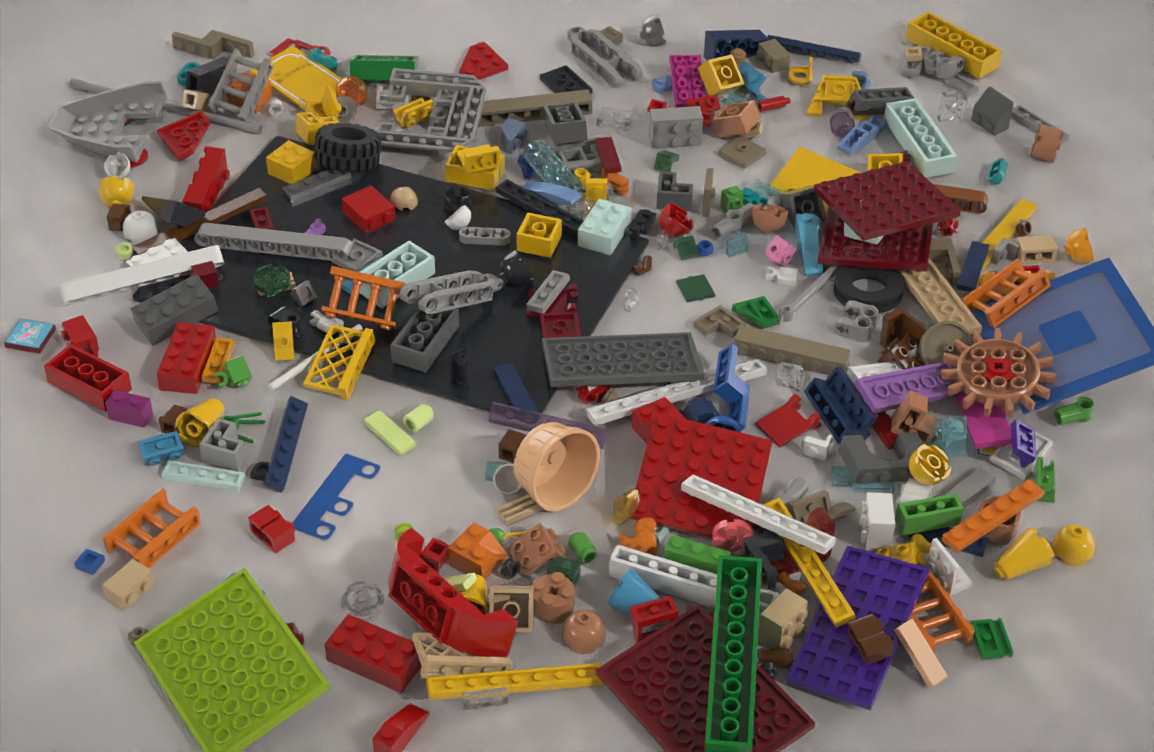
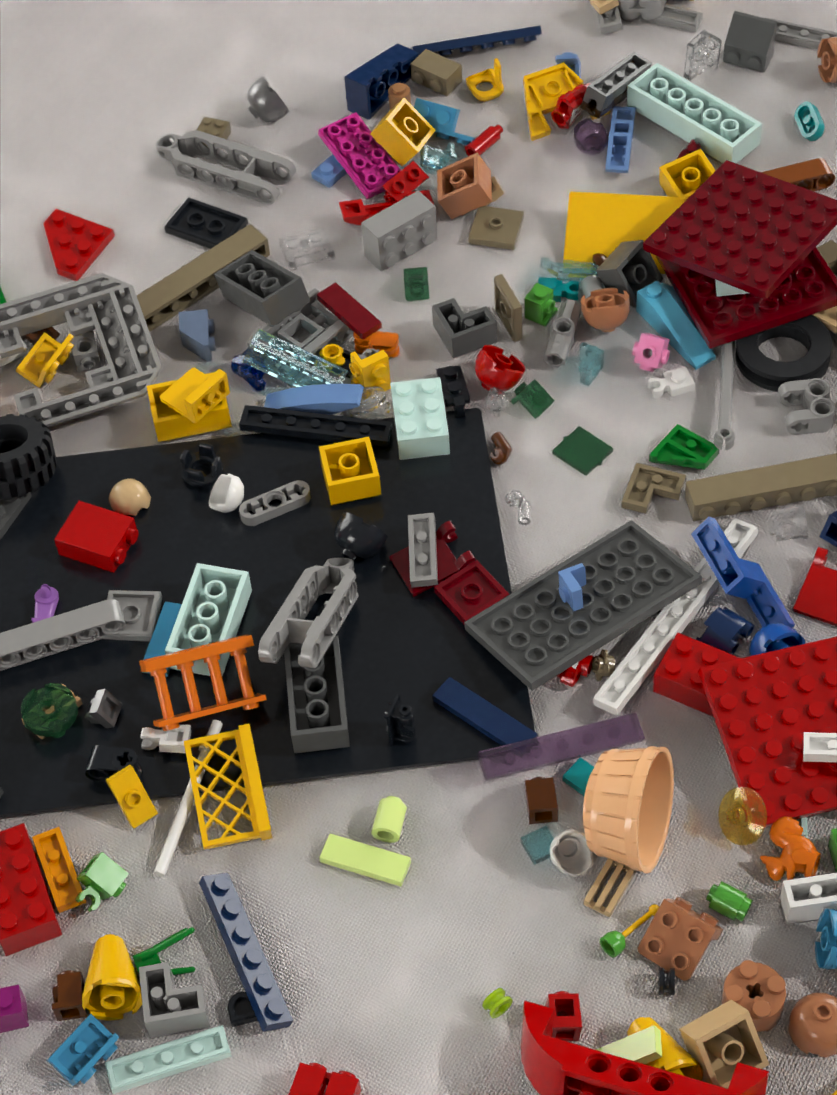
camera: 25 degrees left, 10 degrees up
(327, 496) = (352, 1002): blue piece -> none
(476, 551) = (611, 983): orange slope -> none
(570, 568) = (735, 948): clear green brick -> none
(620, 340) = (570, 585): none -> medium blue bracket
(705, 247) = (555, 387): blue plate -> none
(837, 102) = (568, 106): none -> red rock

